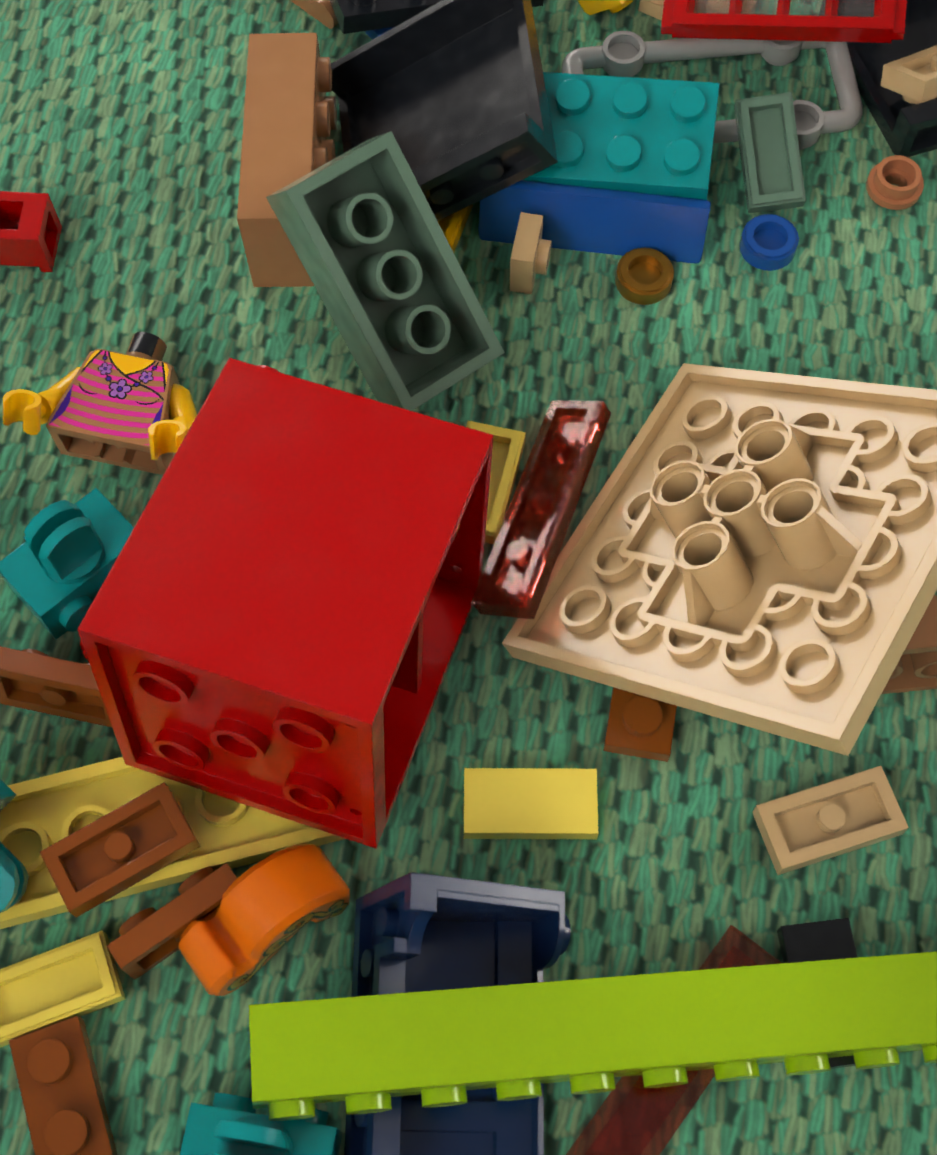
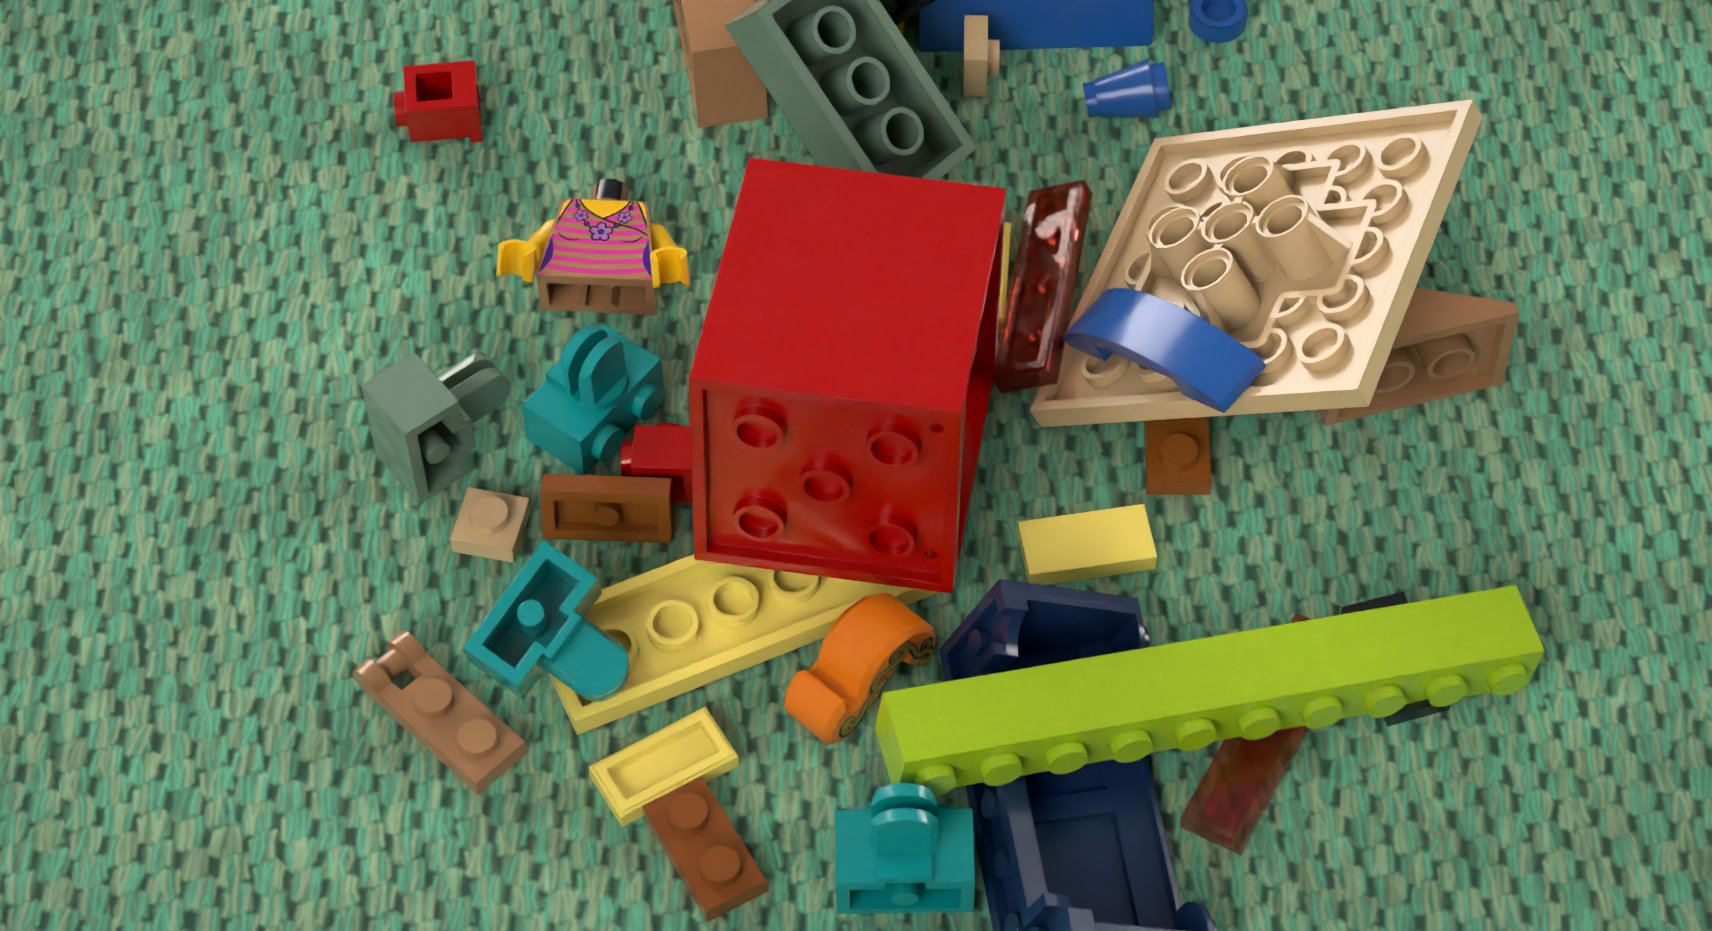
camera: 10 degrees left, 10 degrees down
(119, 850) = (713, 623): dark orange plate -> none
(155, 935) = (758, 699): dark orange plate -> none
(644, 276) = (1096, 58): pearl gold tile -> none
(647, 621) = (1170, 341): none -> blue slope
(667, 311) = (1129, 92): none -> blue cone
(829, 820) = (1371, 514): tan plate -> none

